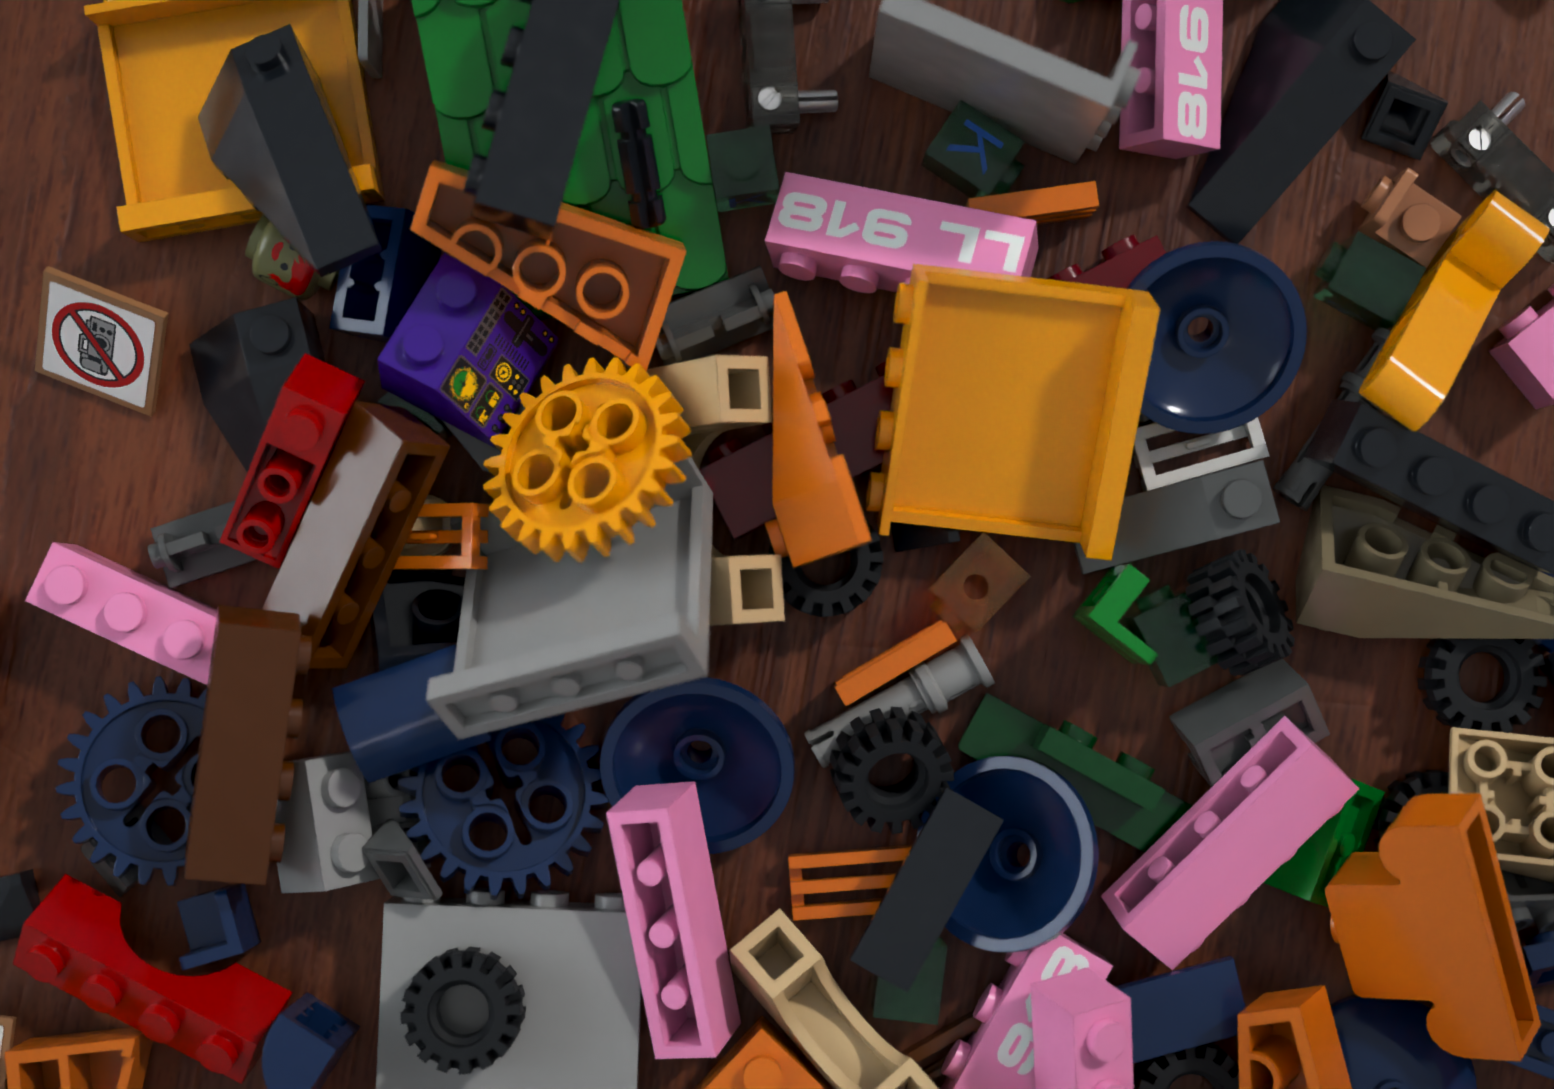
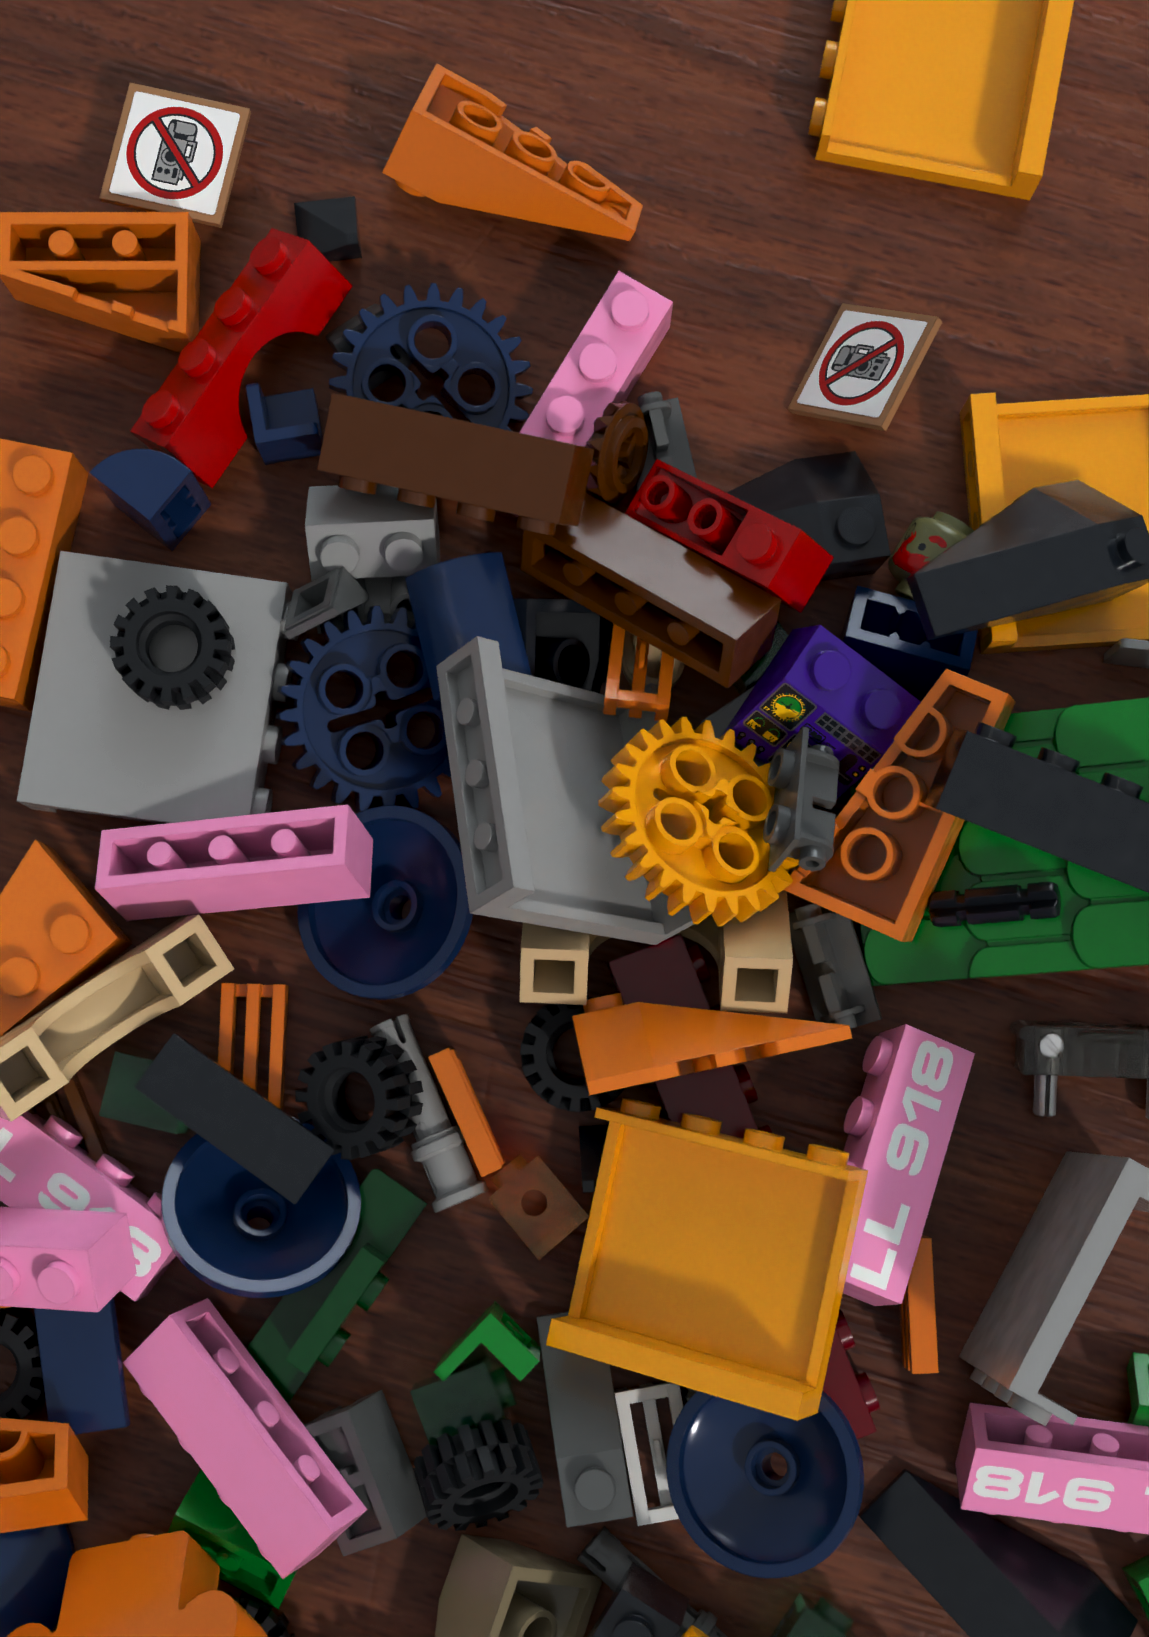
camera: 90 degrees right, 5 degrees down
(215, 580) = (619, 451): none -> reddish brown gear
(535, 364) = (802, 780): none -> dark grey hinge
(743, 168) = (982, 1011): clear green brick -> none
(974, 153) = (977, 1251): clear green brick -> none

